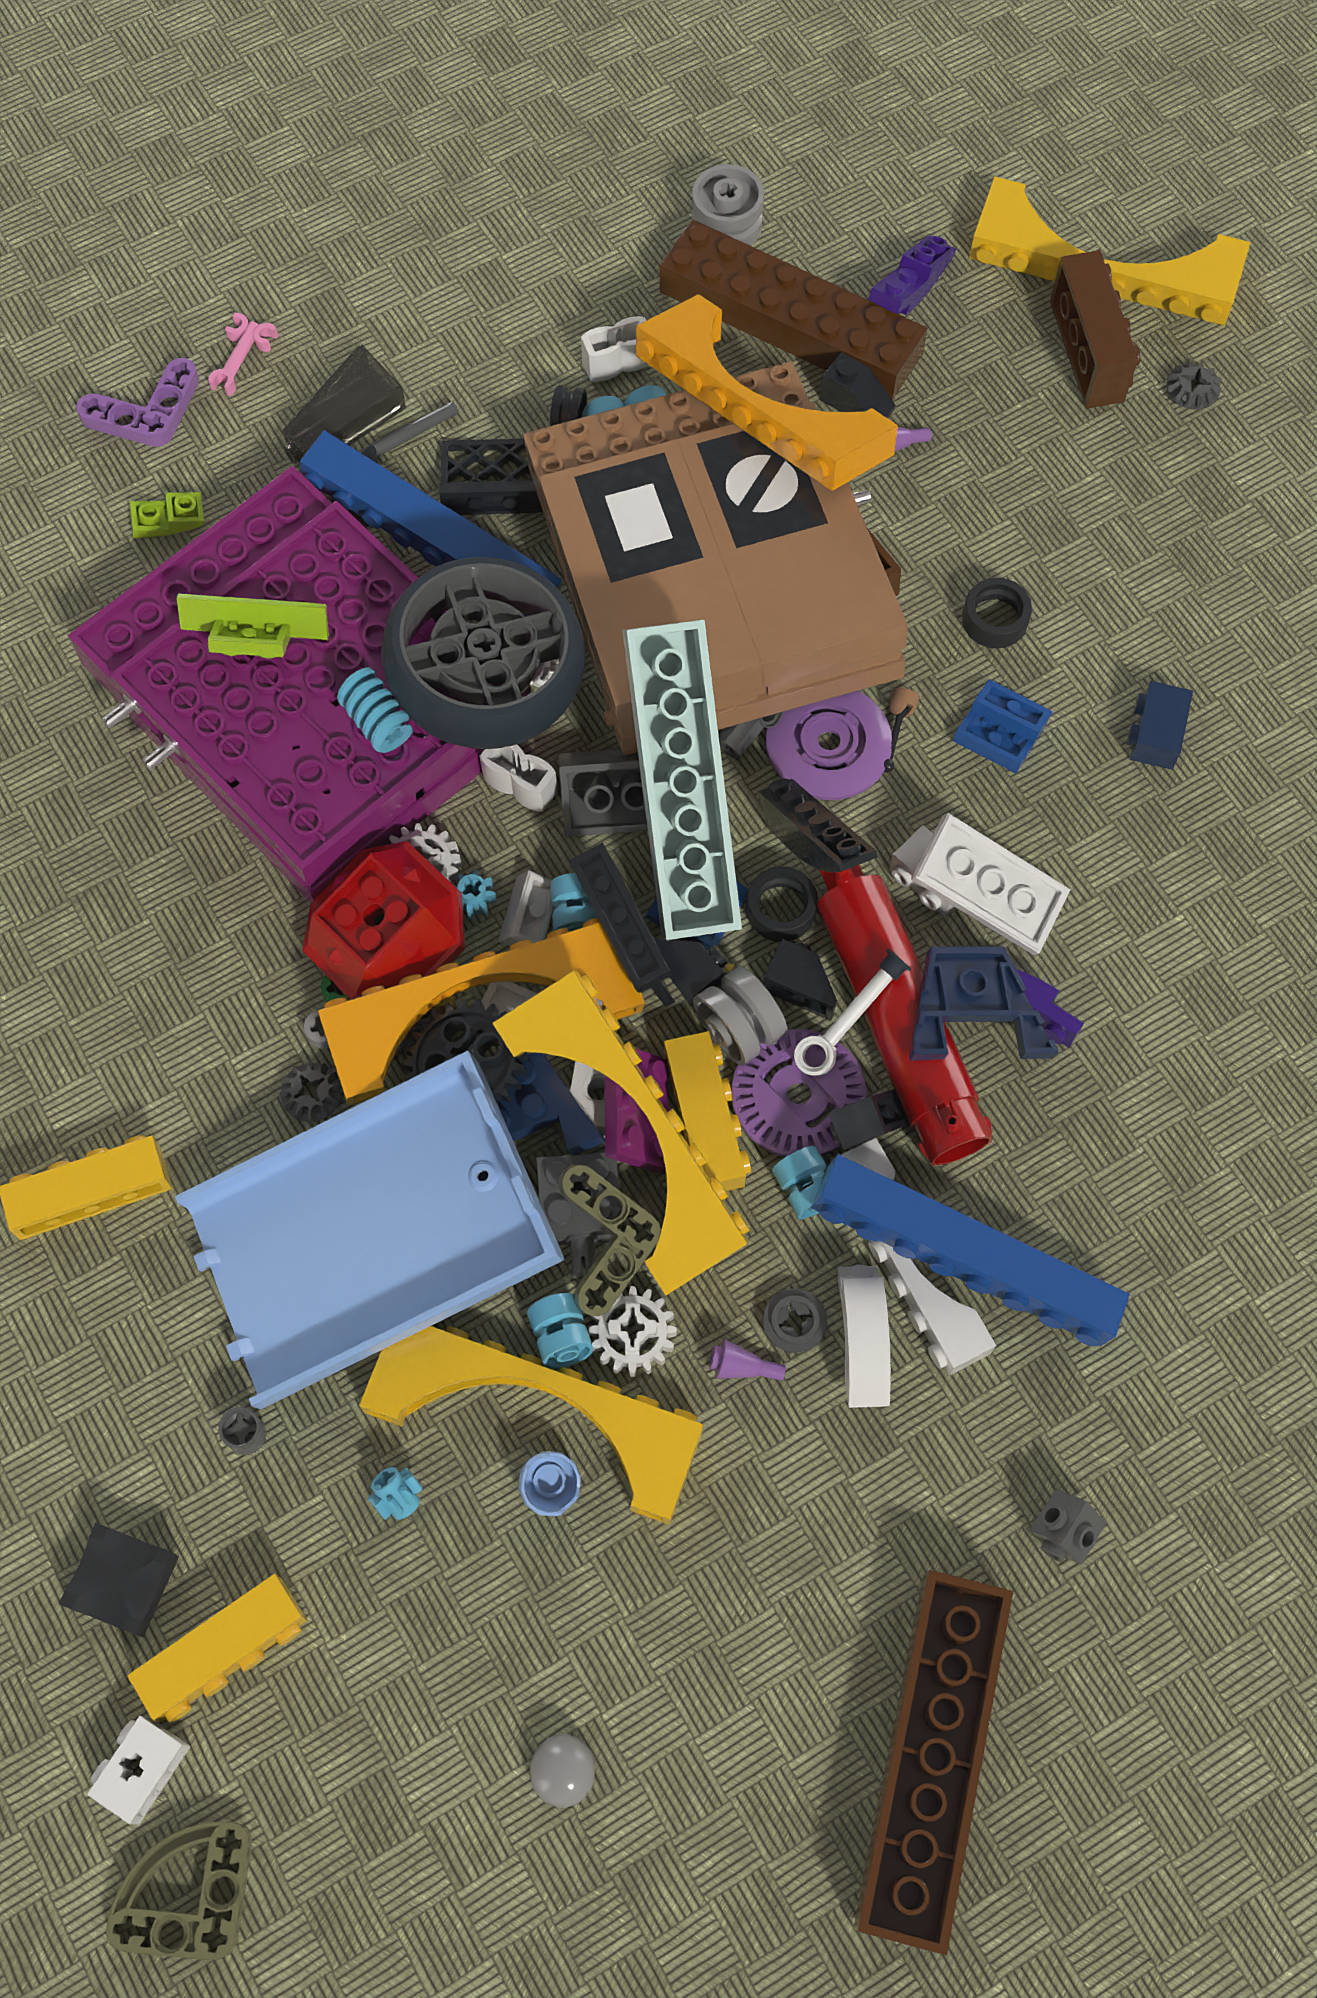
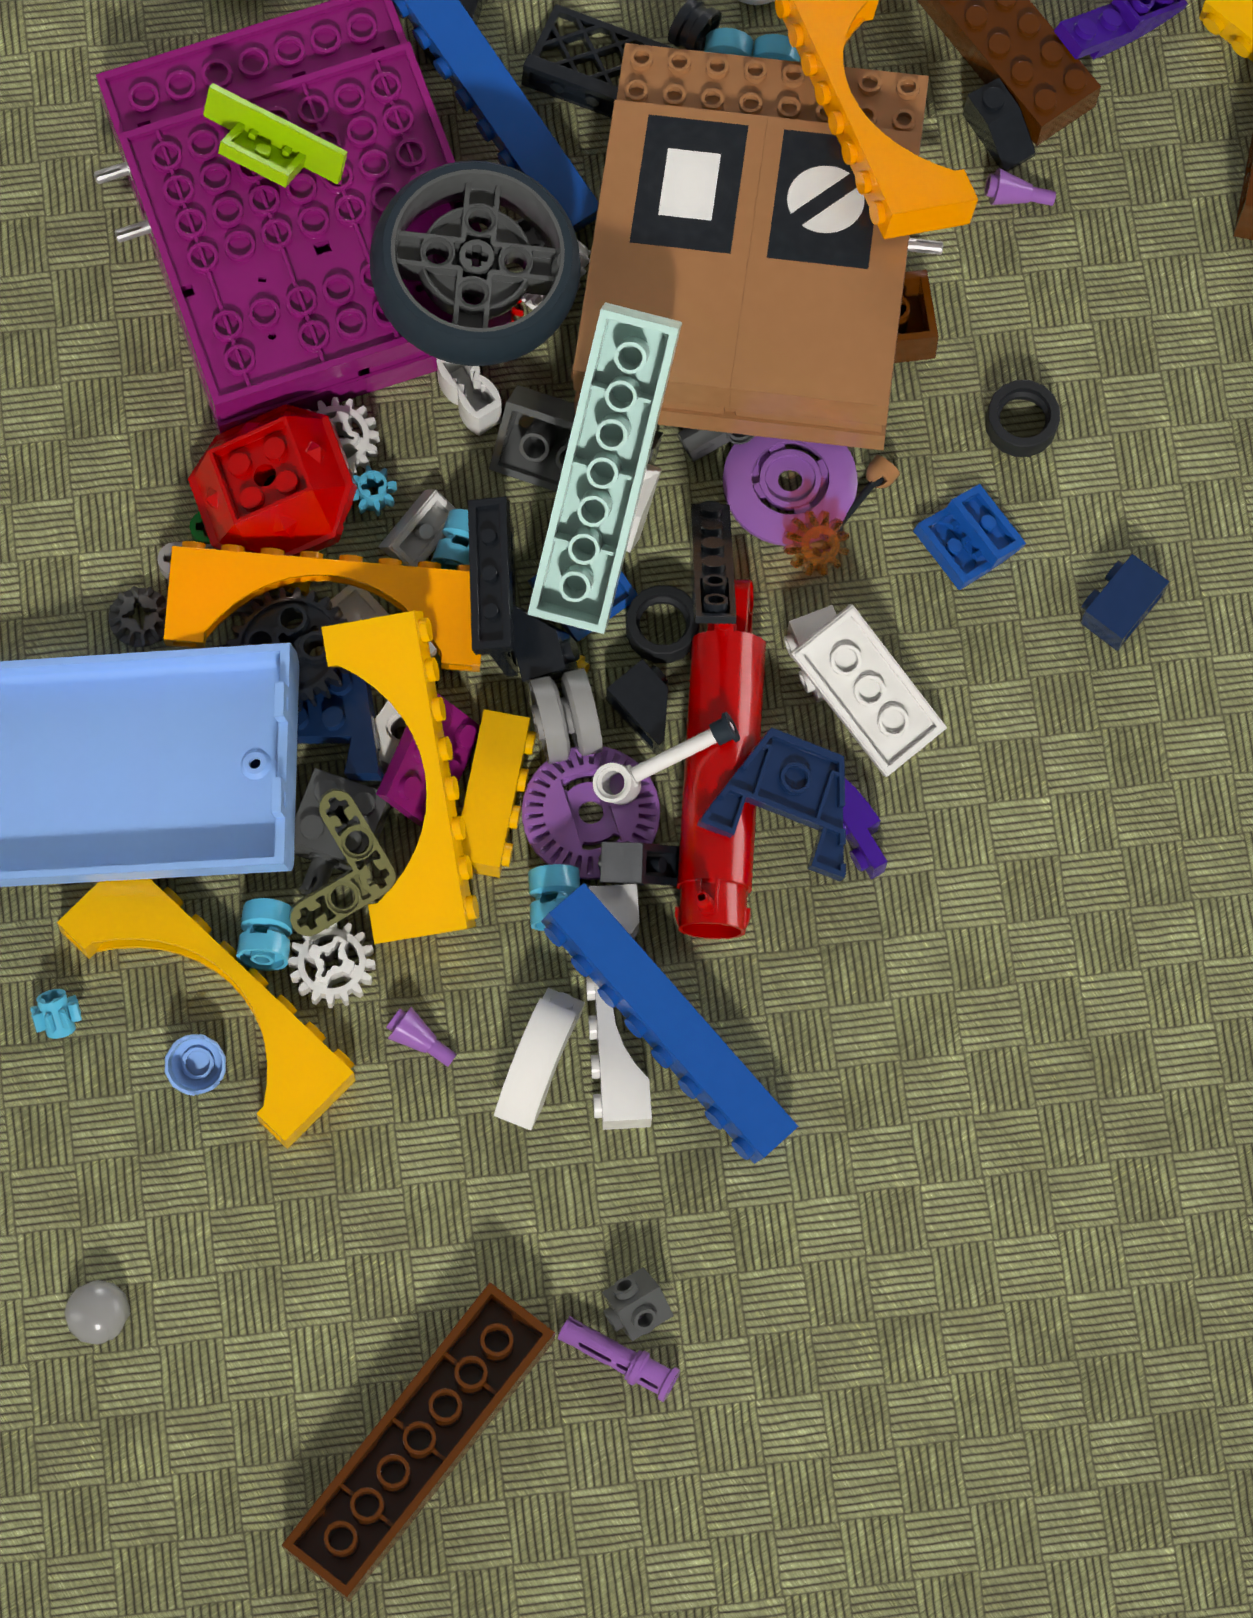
camera: 20 degrees right, 5 degrees up
(374, 710) = (346, 277): medium azure piece -> none
(803, 1304) = (471, 1006): dark grey gear -> none
(893, 776) = (820, 555): none -> clear orange gear
(1091, 1586) = (635, 1366): none -> medium lavender pin

